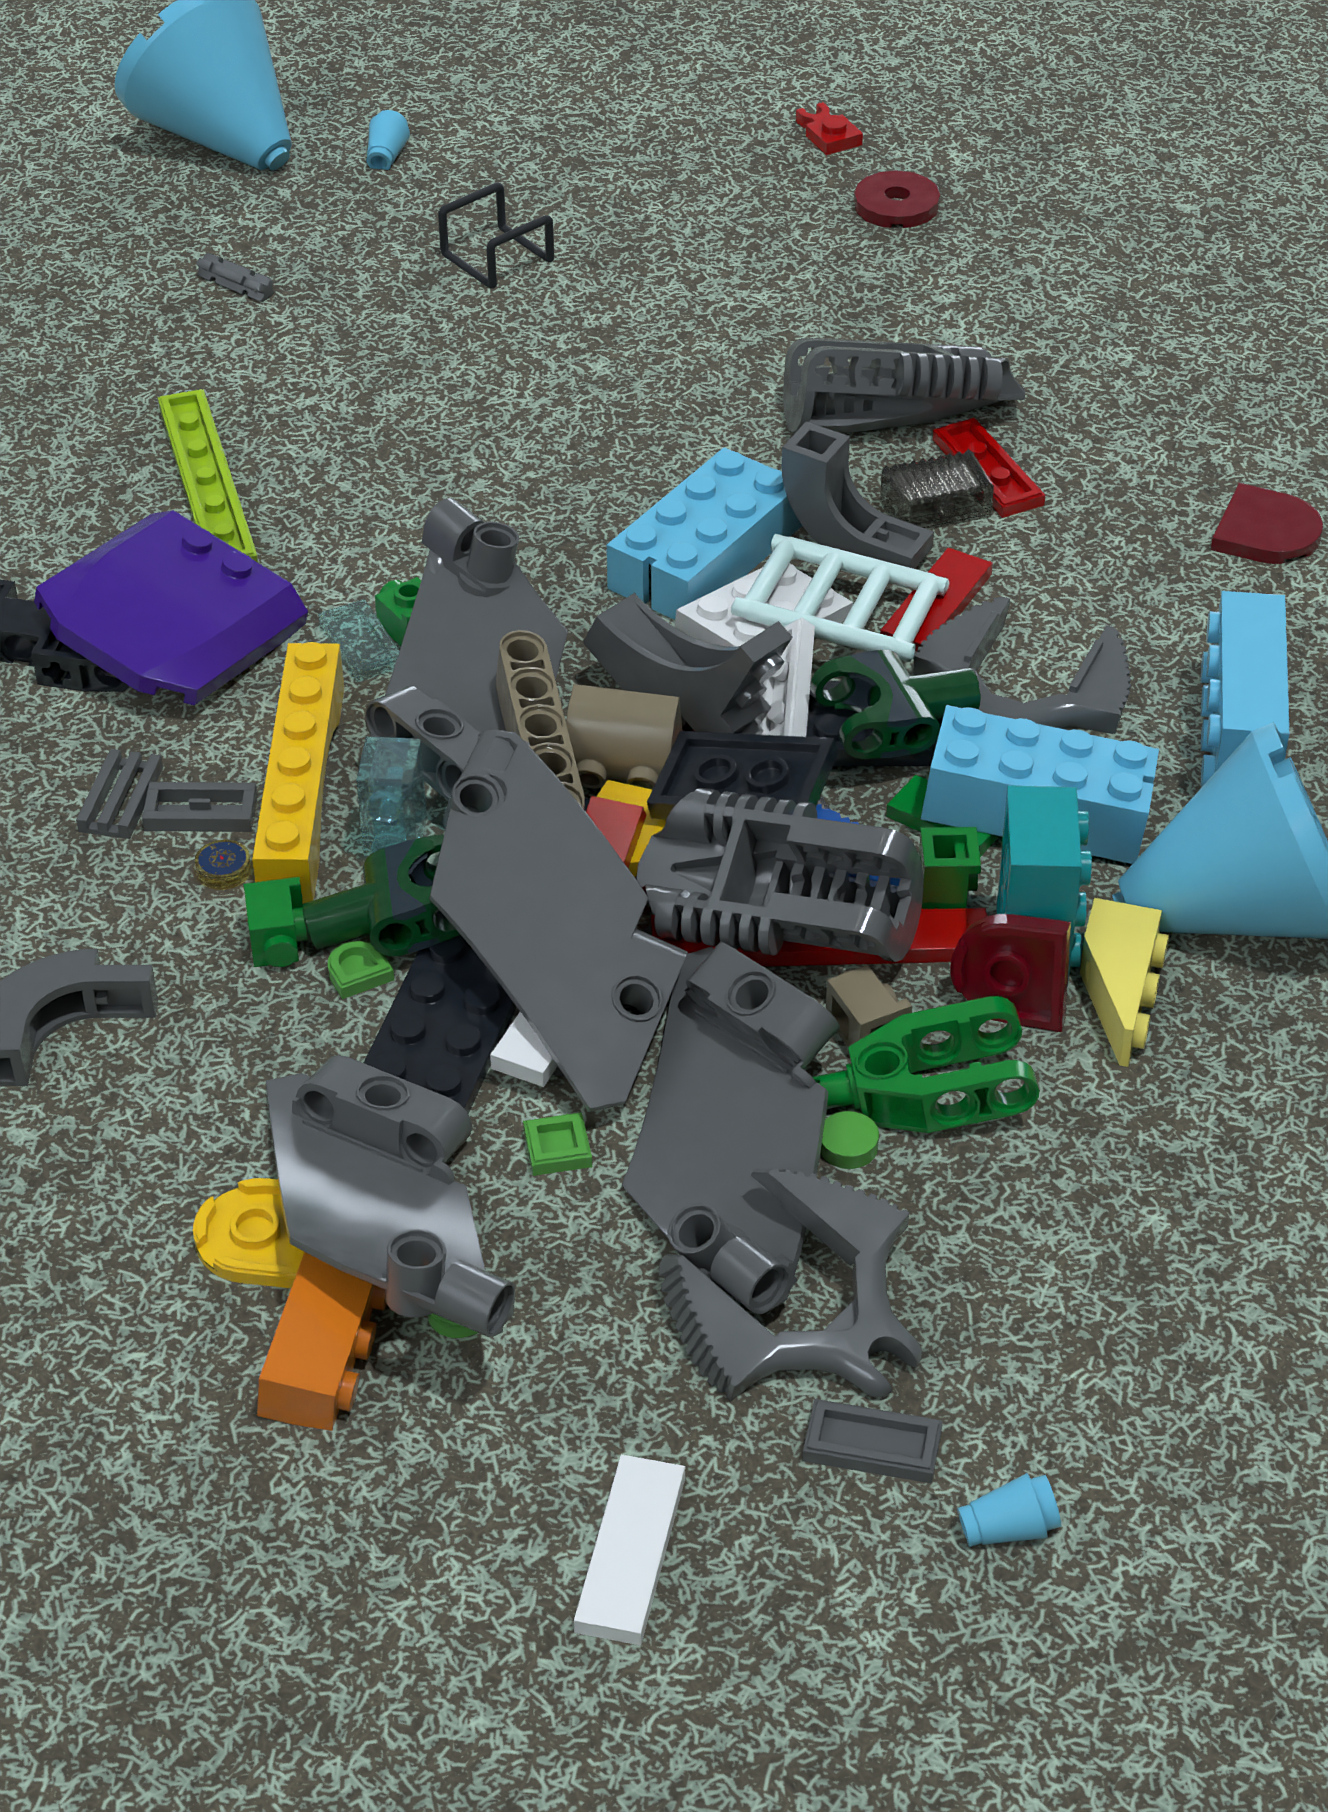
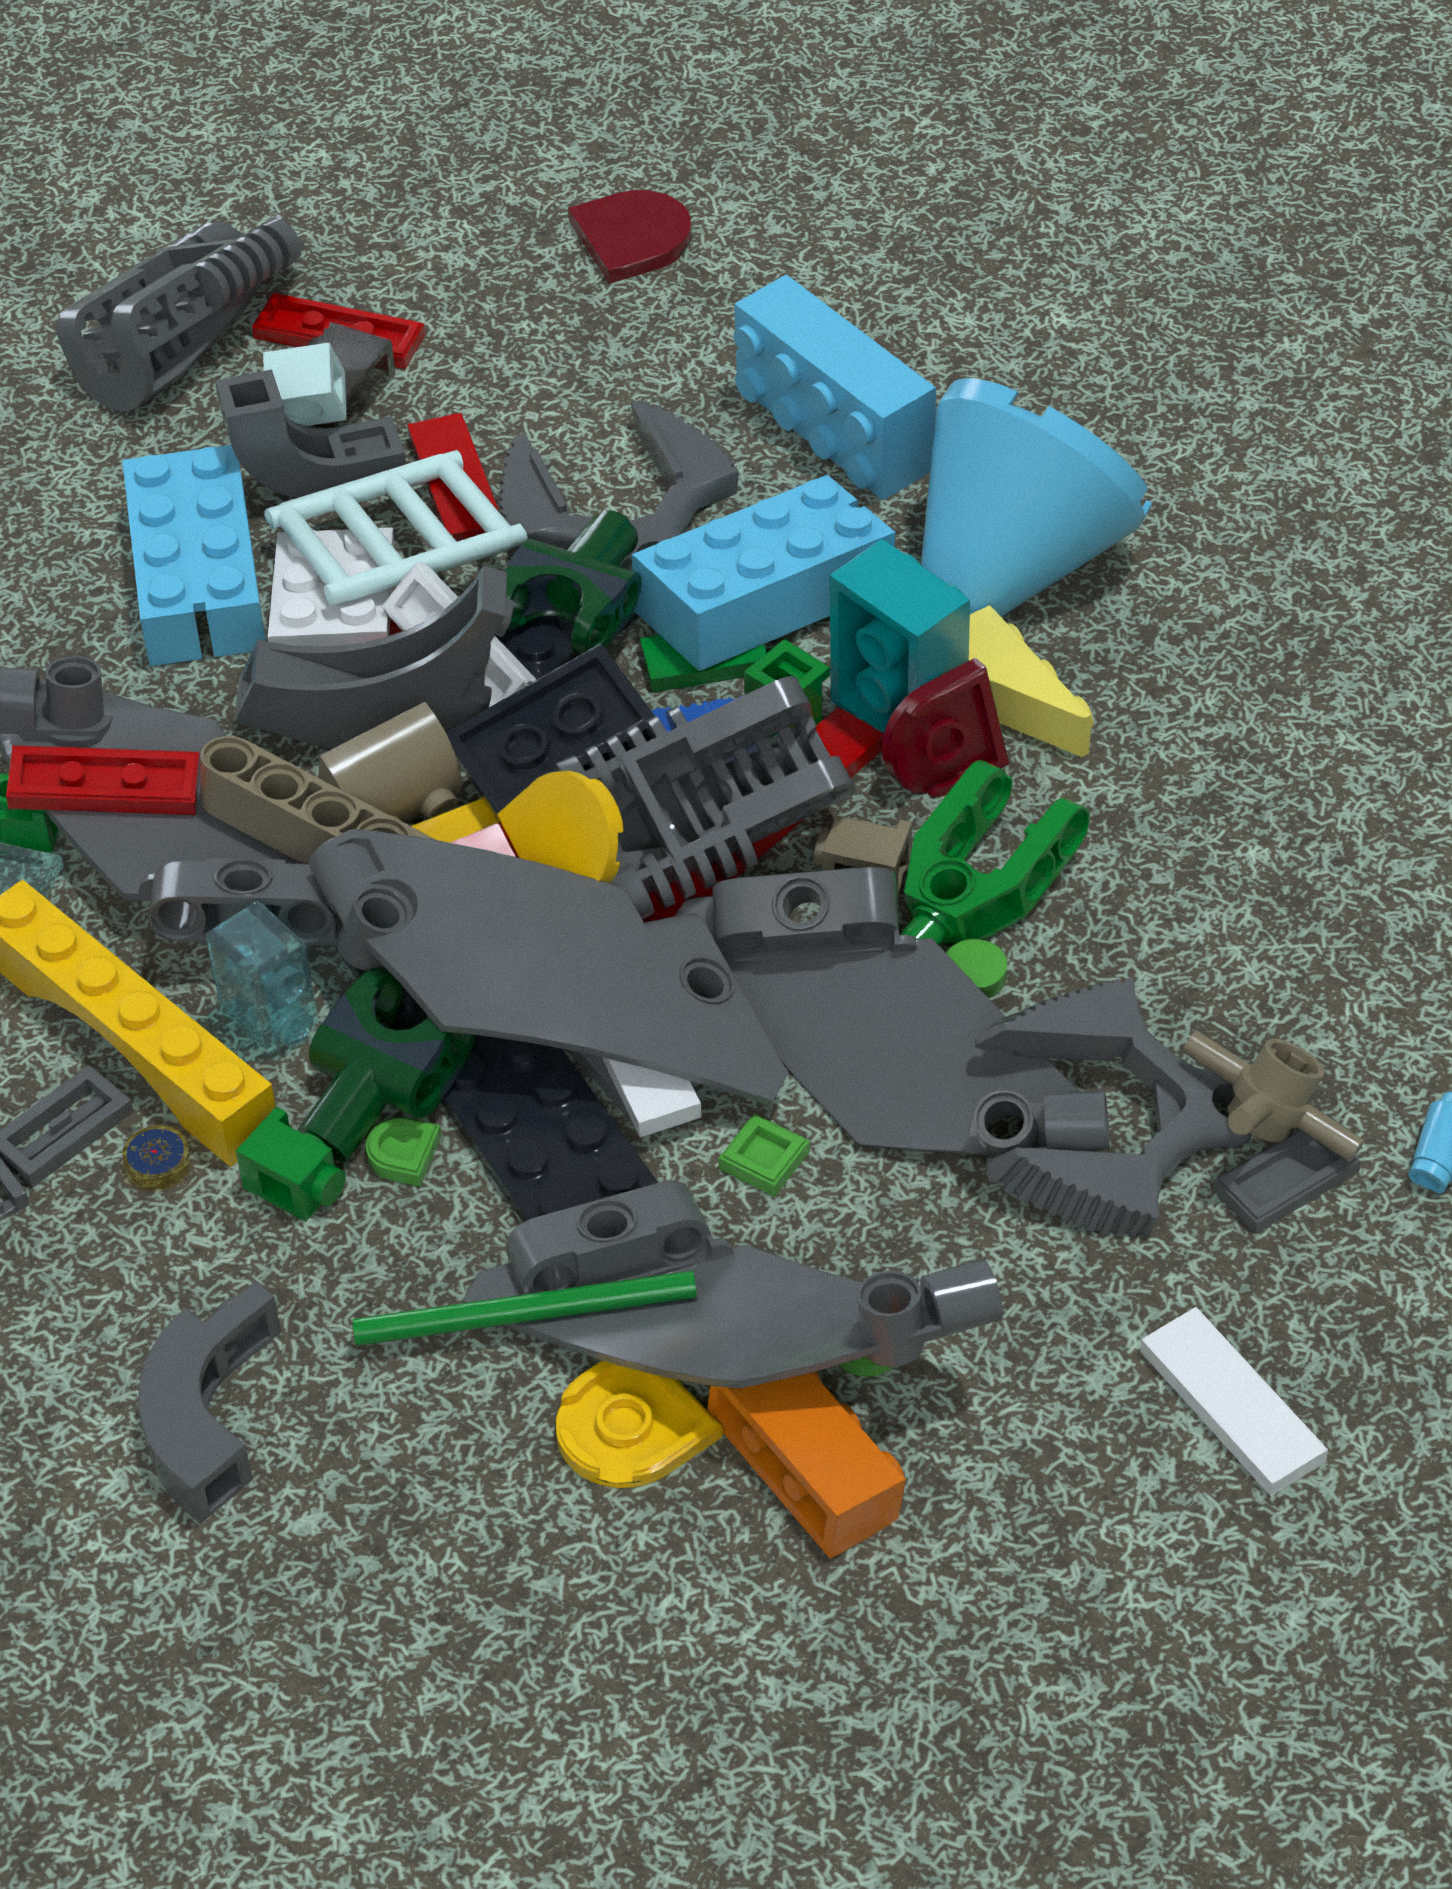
camera: 45 degrees left, 5 degrees up
(284, 1111) = (524, 1308): none -> green piece
(451, 616) = (103, 780): none -> red tile
(653, 830) = (566, 825): none -> yellow tile
(887, 471) = (309, 383): none -> light aqua brick
(910, 1369) = (1274, 1093): none -> dark tan bar

